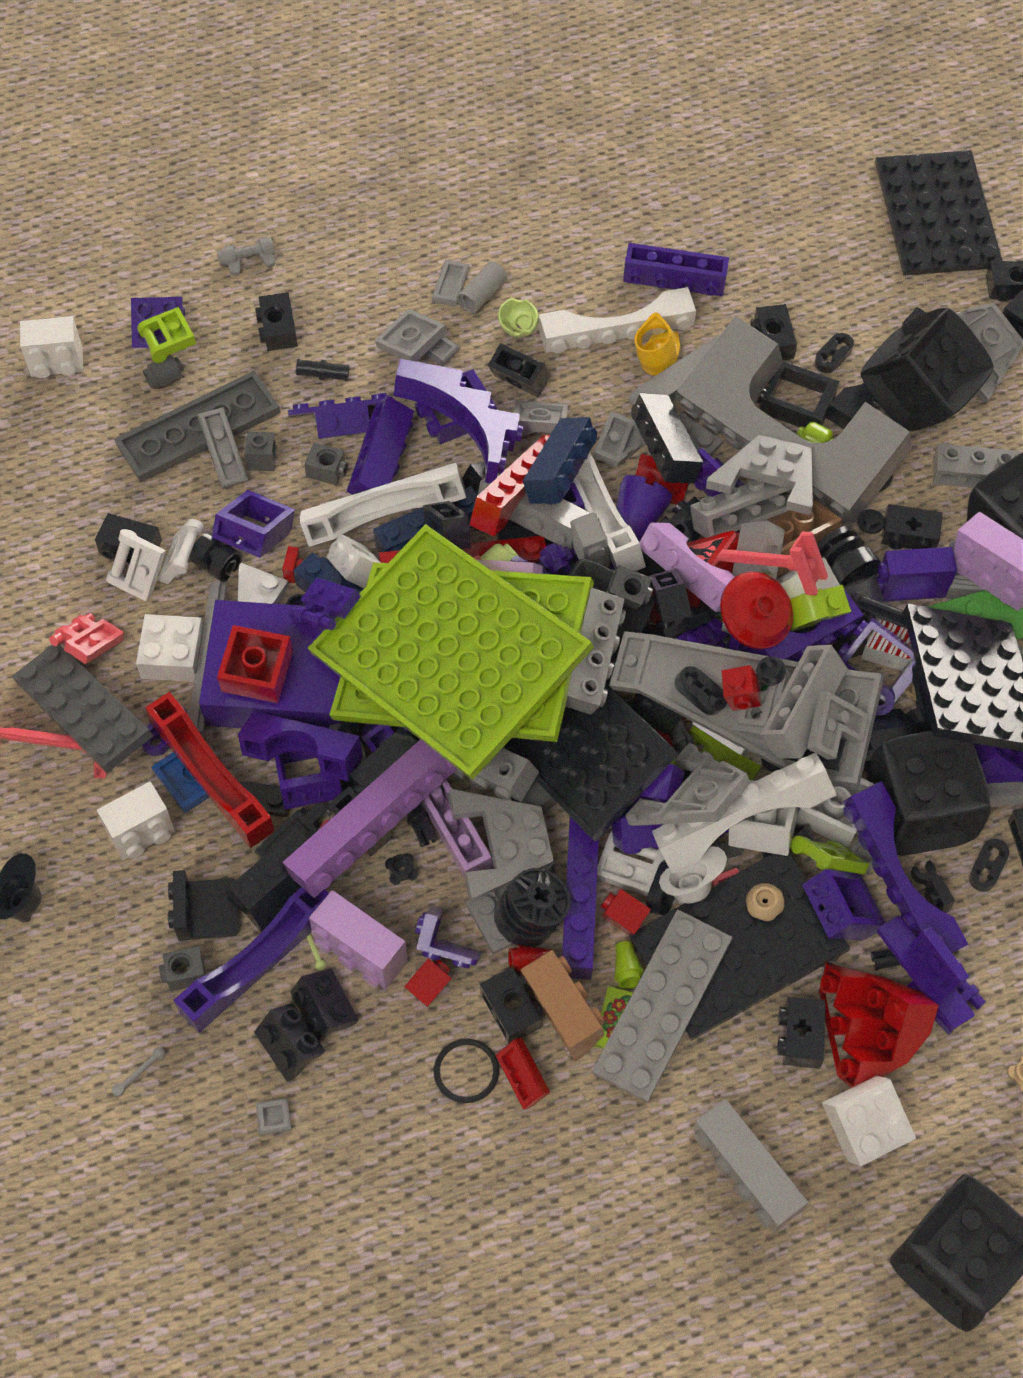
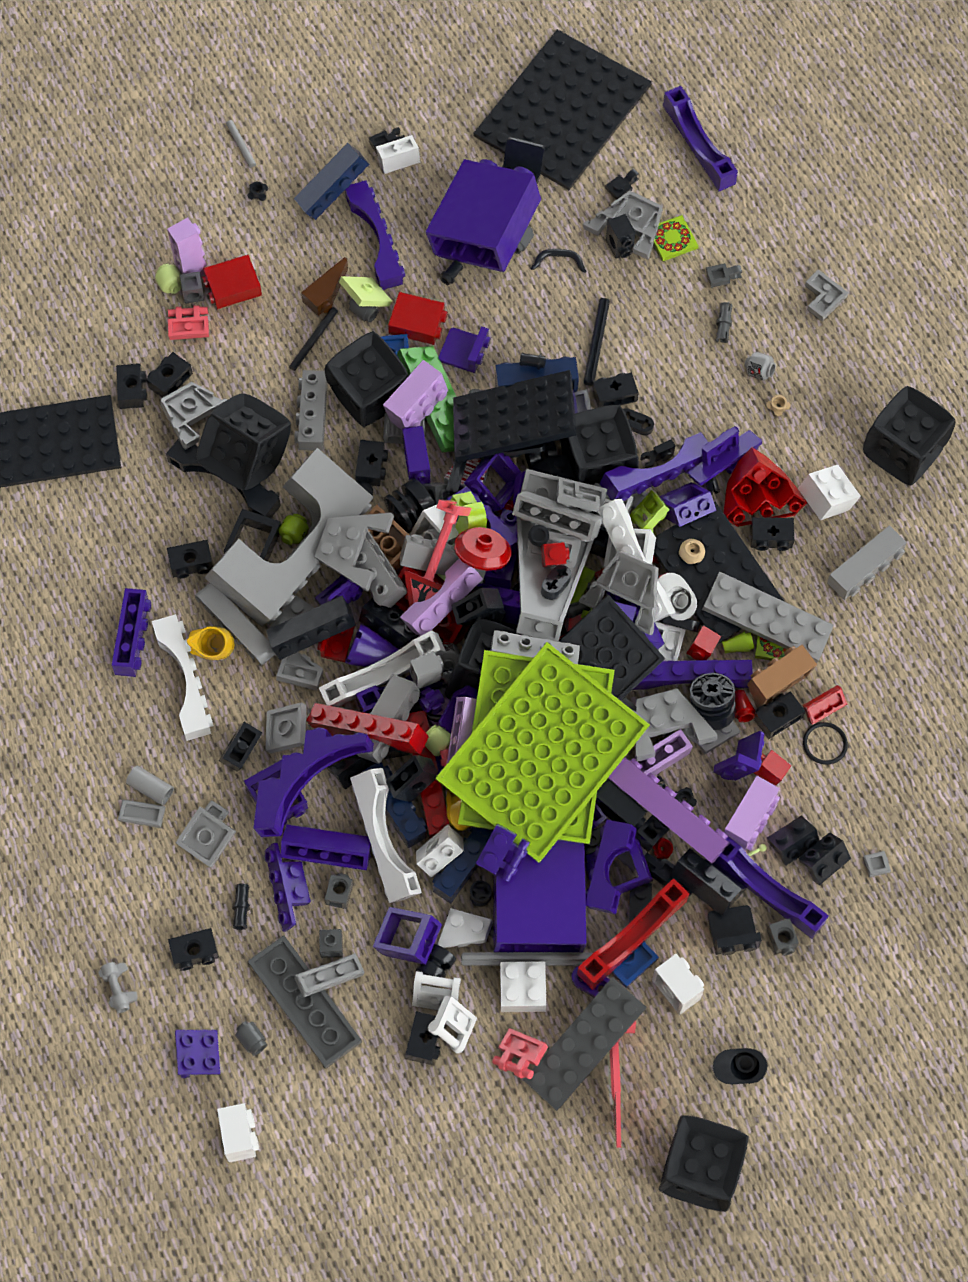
camera: 95 degrees left, 5 degrees up
(118, 1089) = (873, 972): light grey hinge -> none
(174, 329) = (217, 1027): lime plate -> none
(255, 664) = (559, 897): red brick -> none
(291, 562) = (437, 904): red plate -> none
(519, 312) = (180, 747): yellowish green hair -> none
(560, 460) = (350, 696): dark blue brick -> none
(620, 577) = (480, 630): dark grey brick -> none
(838, 356) = (202, 520): black beam -> none

